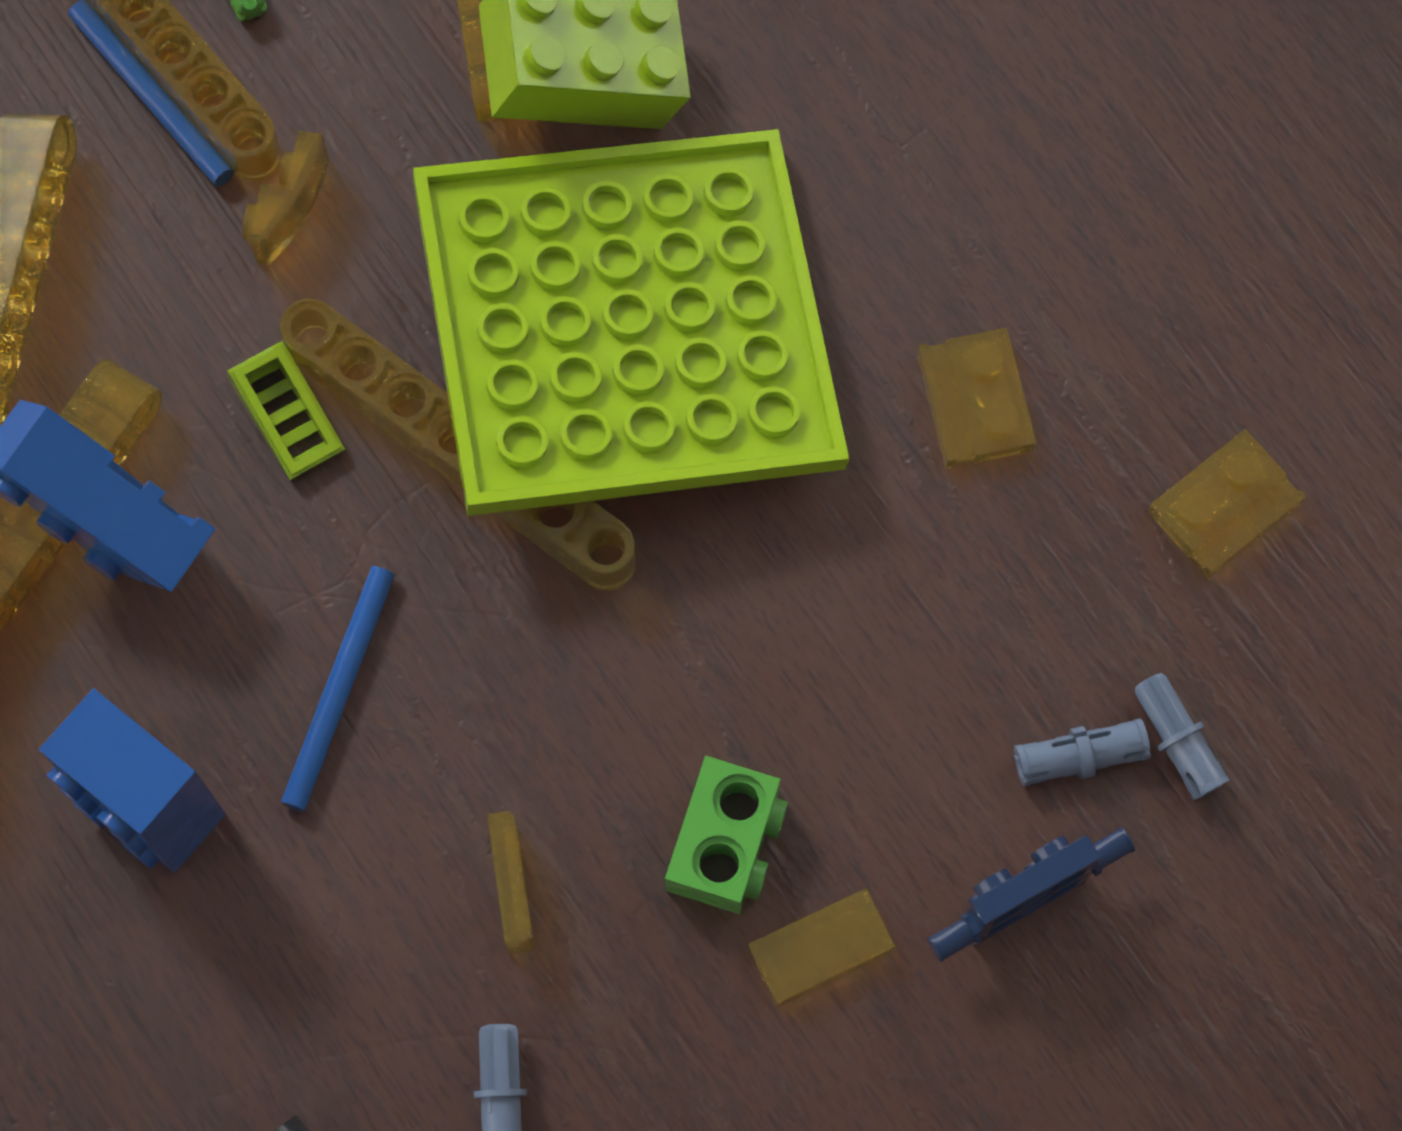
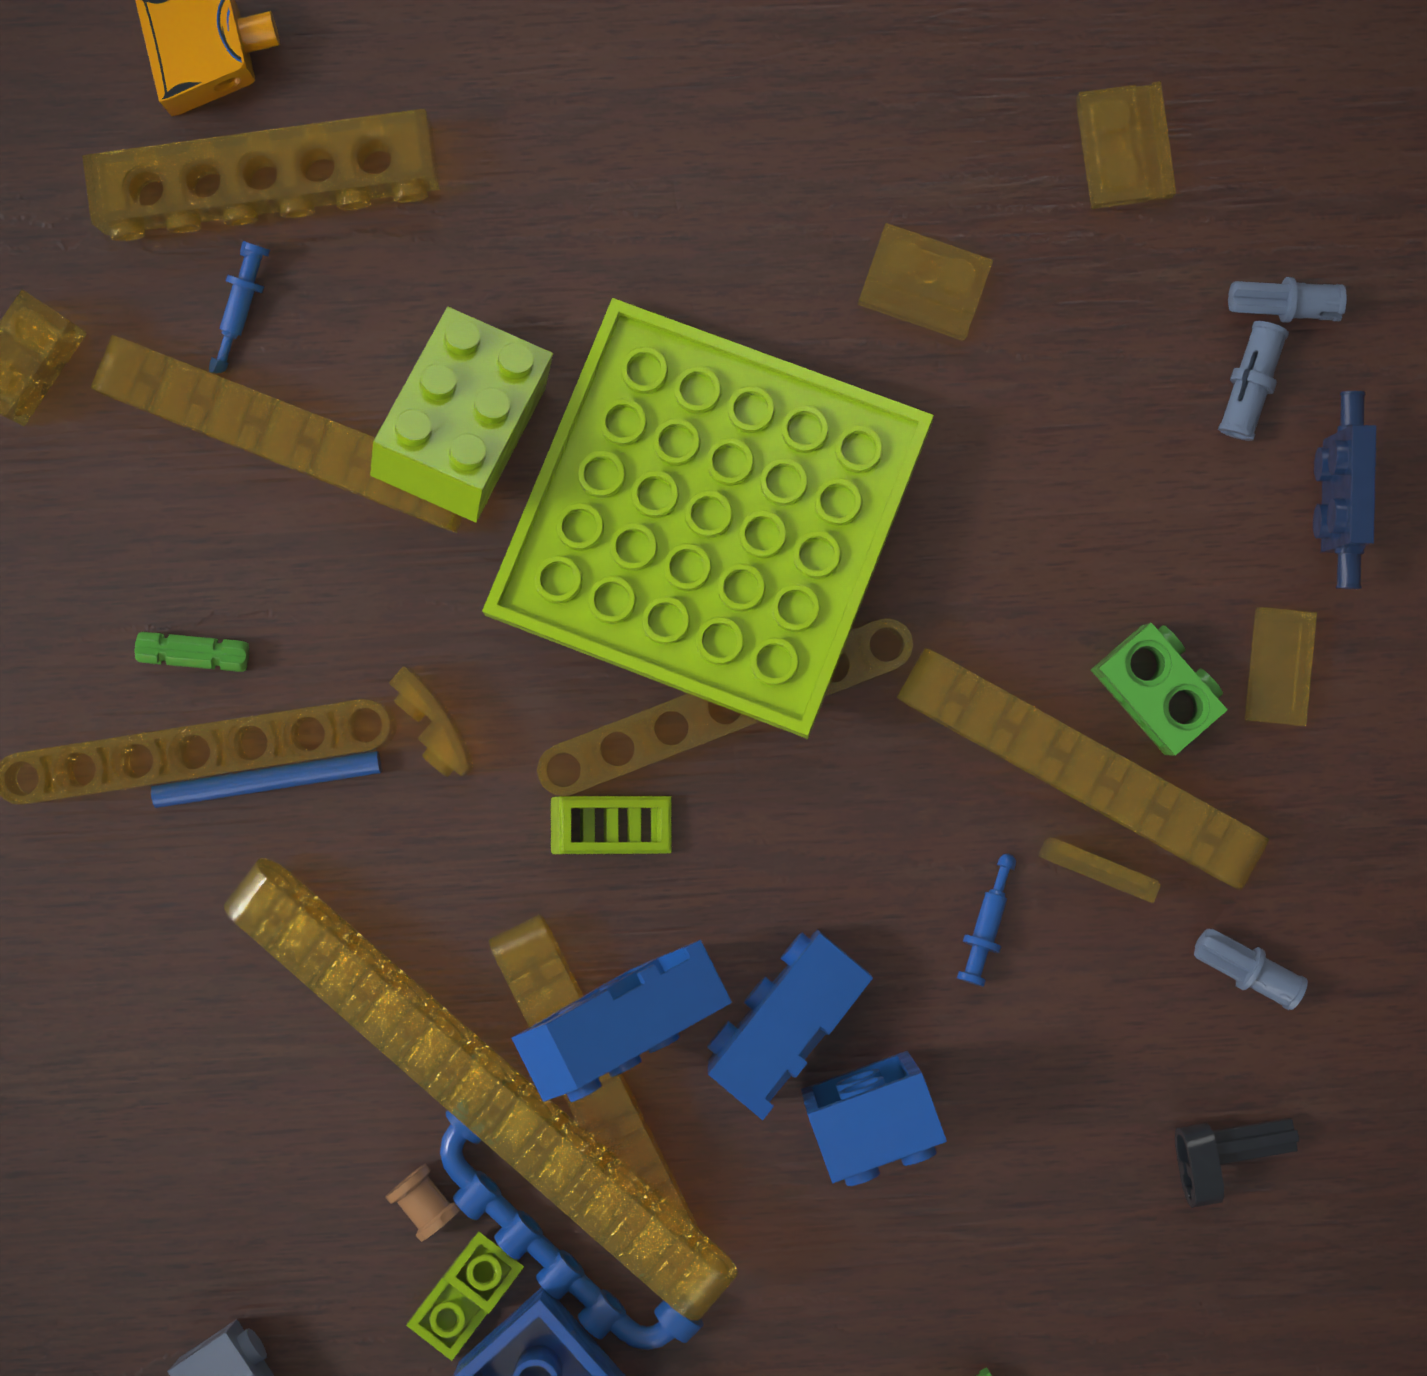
camera: 65 degrees left, 15 degrees up
(183, 667) = (785, 1021): none -> blue wedge
(337, 689) = (862, 911): blue bar -> none
(393, 812) = (987, 925): none -> blue piece
(600, 815) = (1082, 768): none -> clear yellow beam

